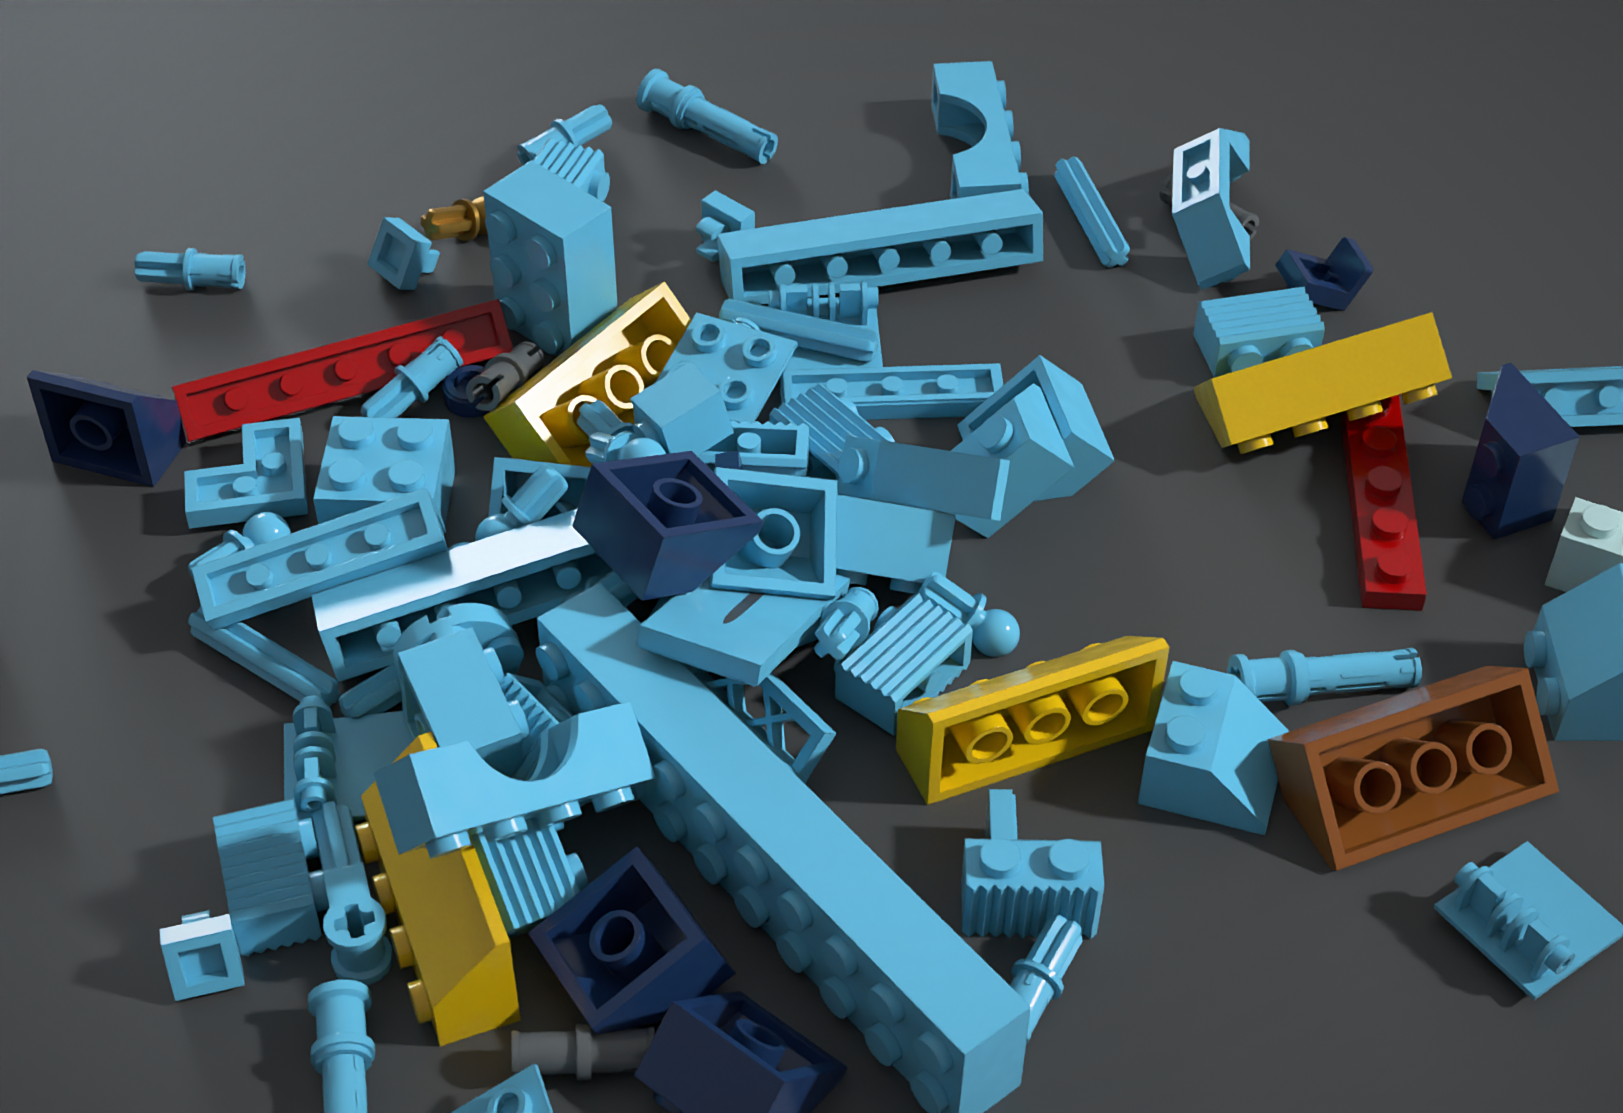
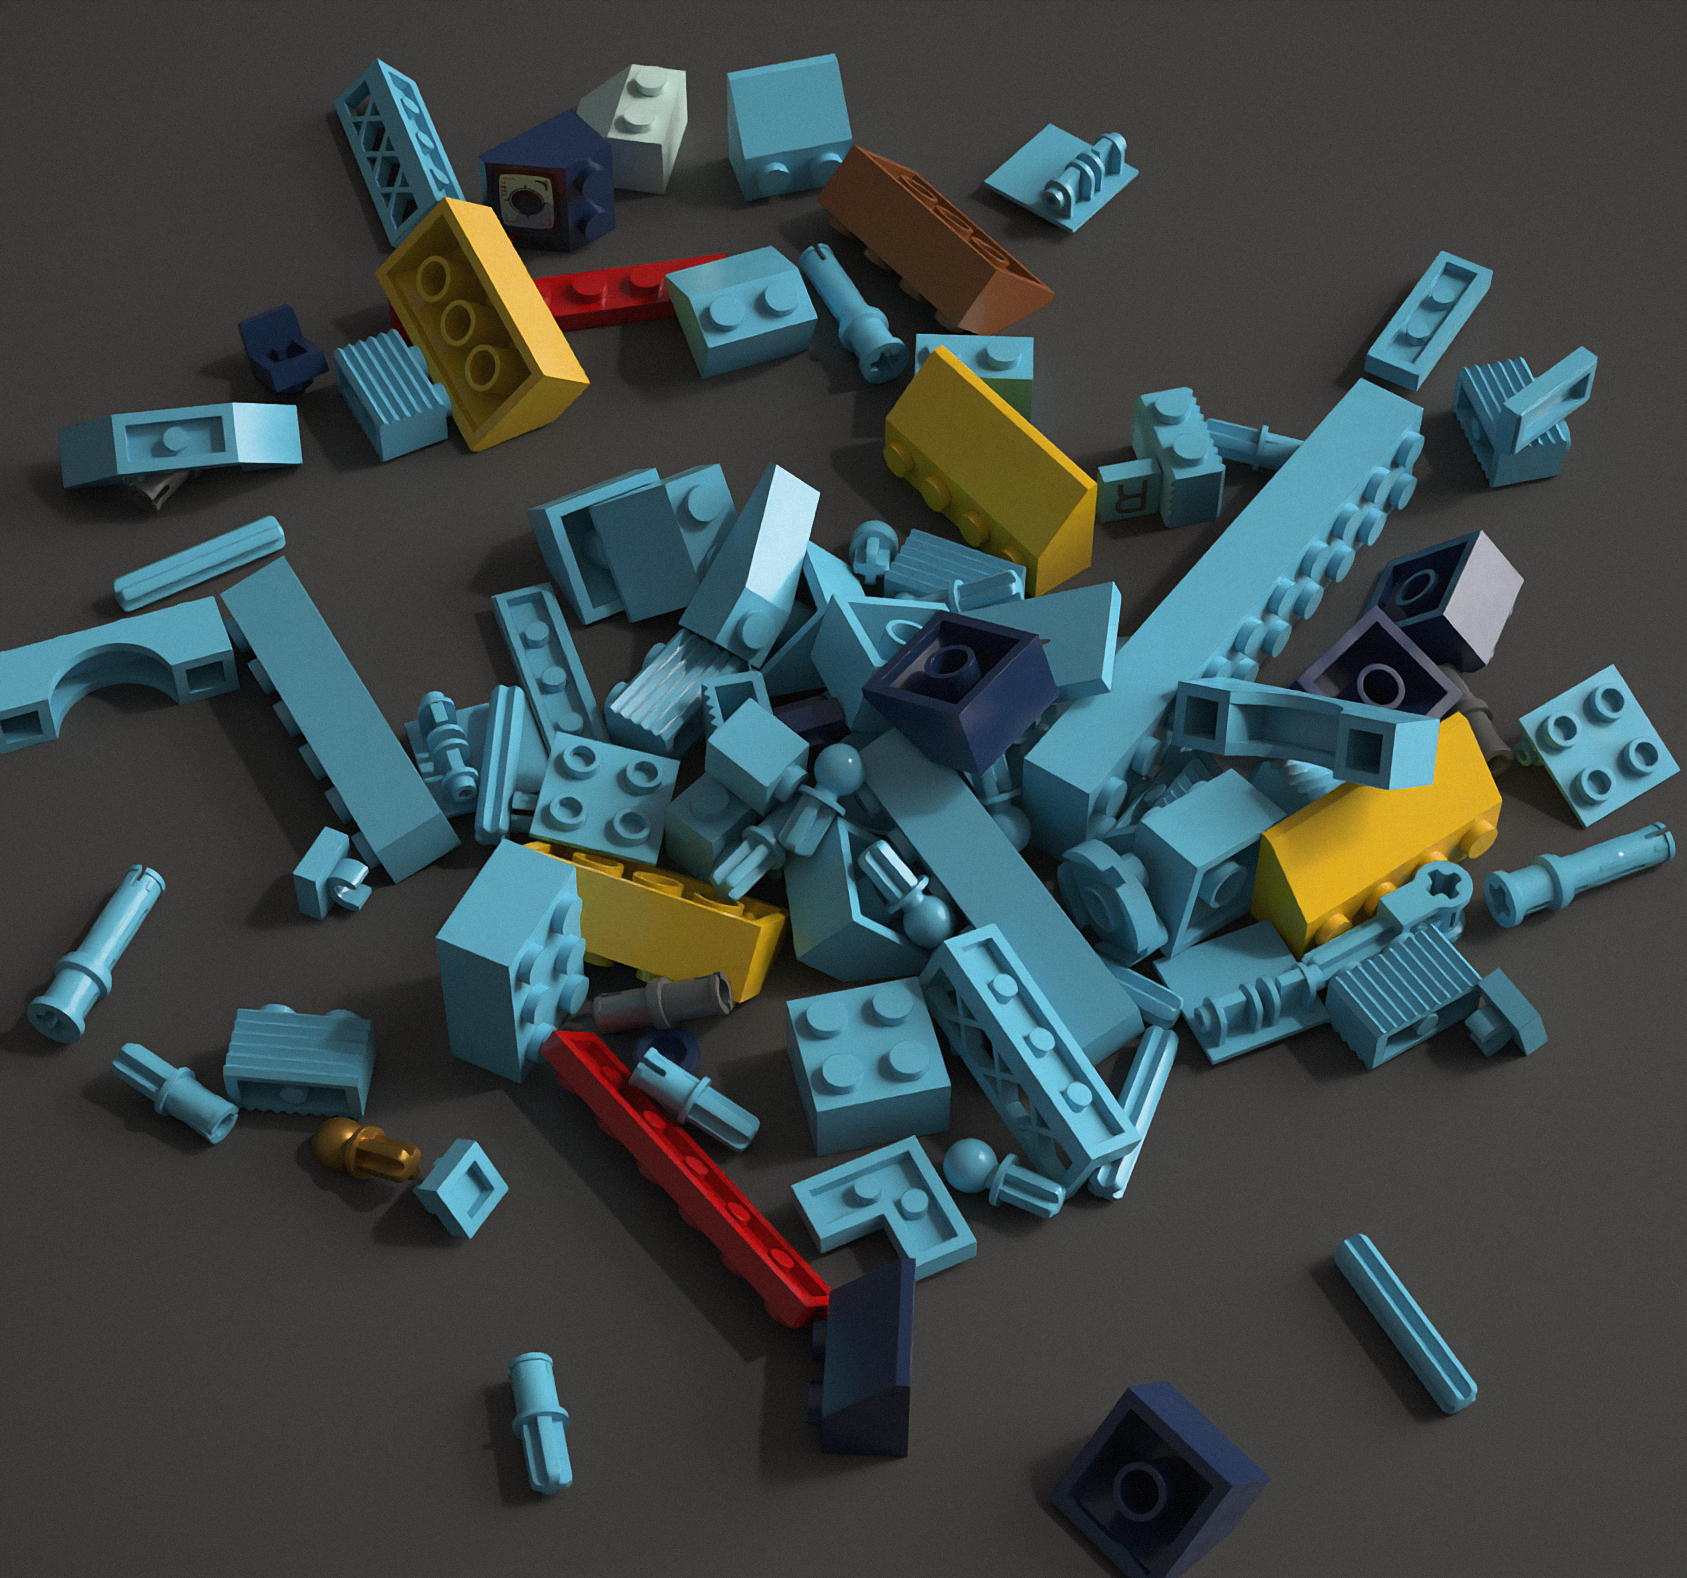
camera: 105 degrees left, 5 degrees up
(1327, 572) = (742, 310): none -> medium azure slope

